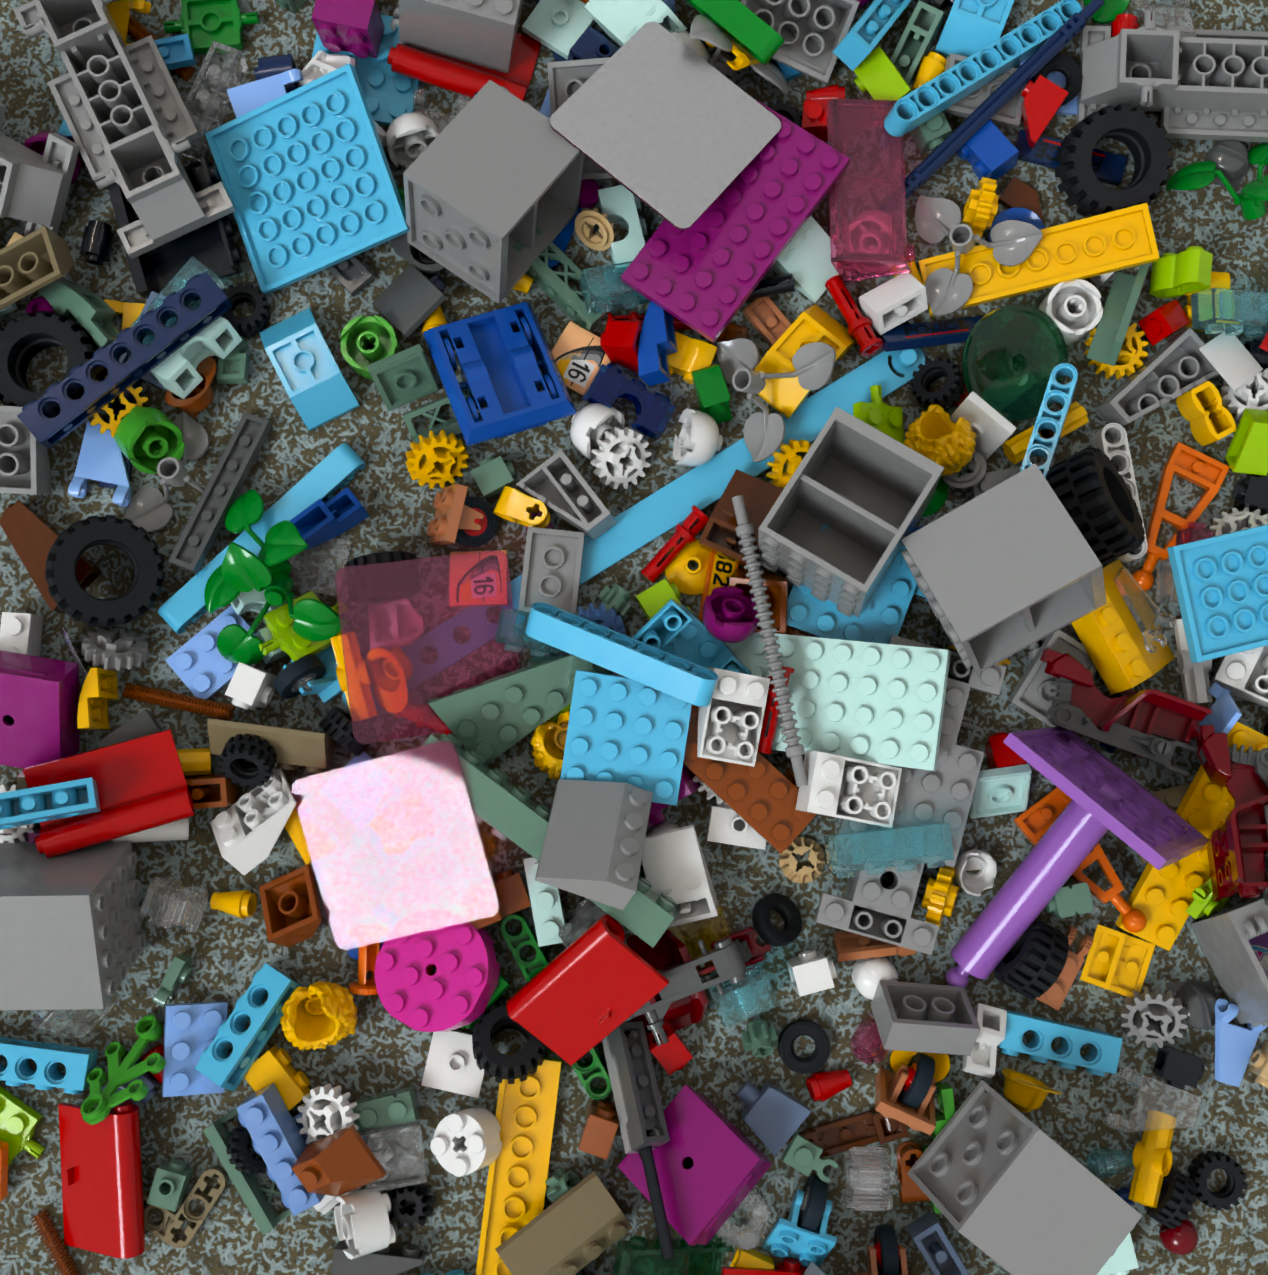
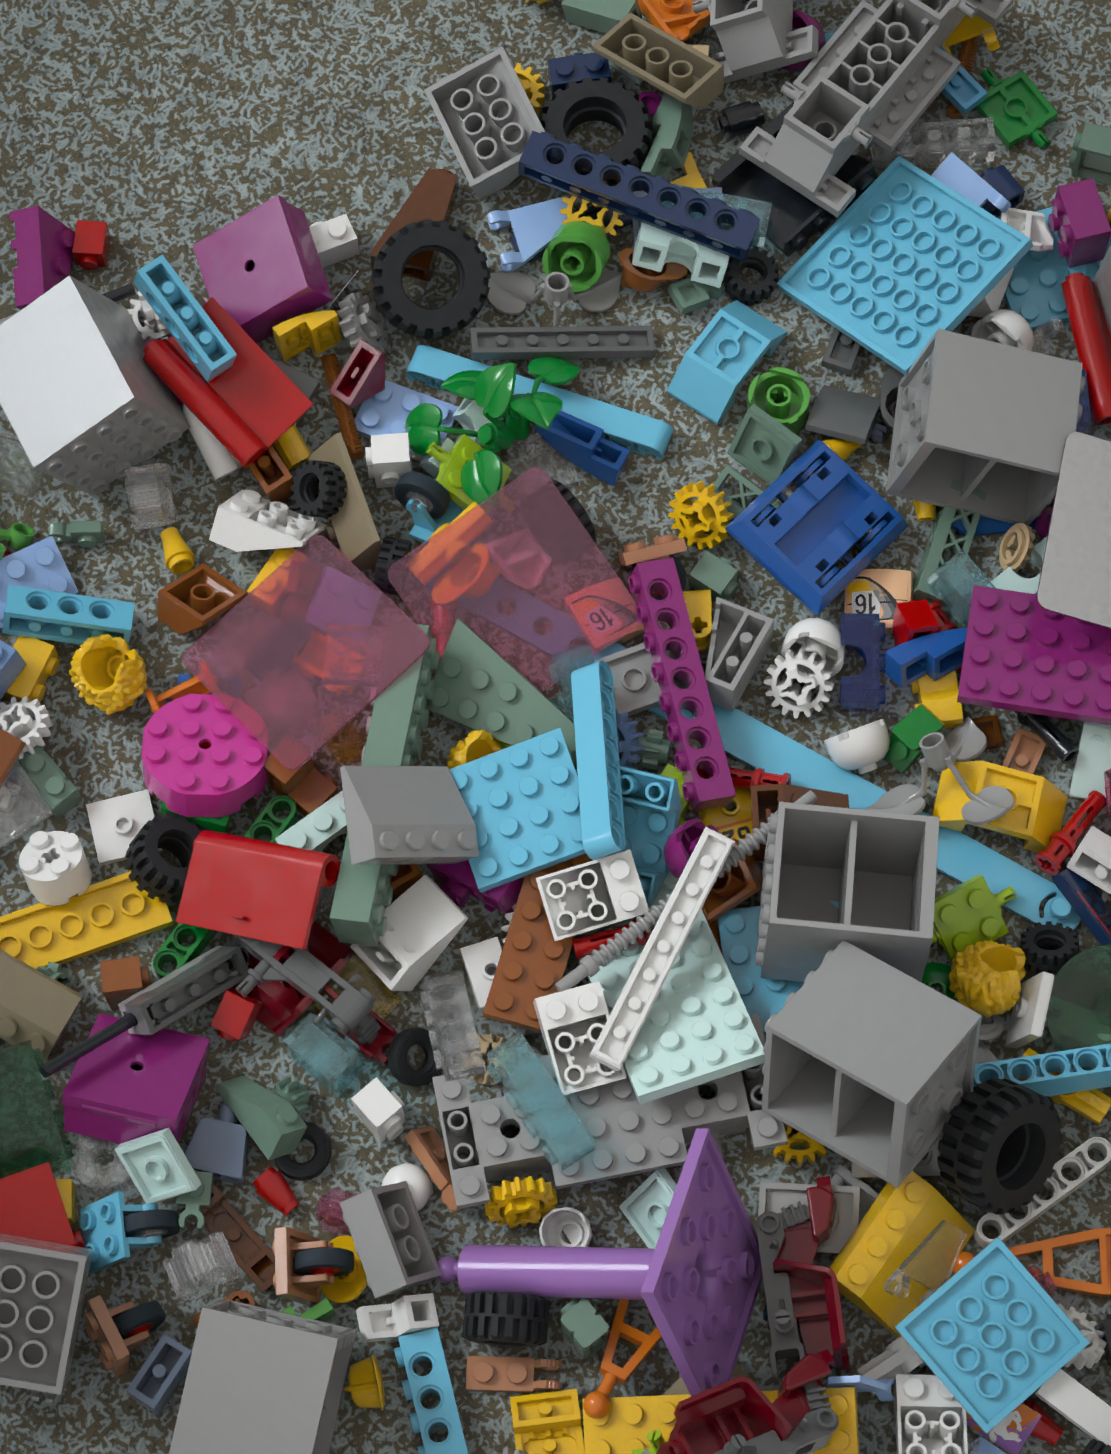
camera: 70 degrees right, 15 degrees down
(162, 674) = (361, 376): none -> dark red slope
(569, 538) = (662, 578): none -> magenta brick
(765, 1069) = (264, 1115): none -> sand green slope
(777, 1182) = (158, 1166): none -> light aqua plate
(815, 686) = (661, 949): none -> white tile
(815, 888) = (451, 1025): none -> clear brick

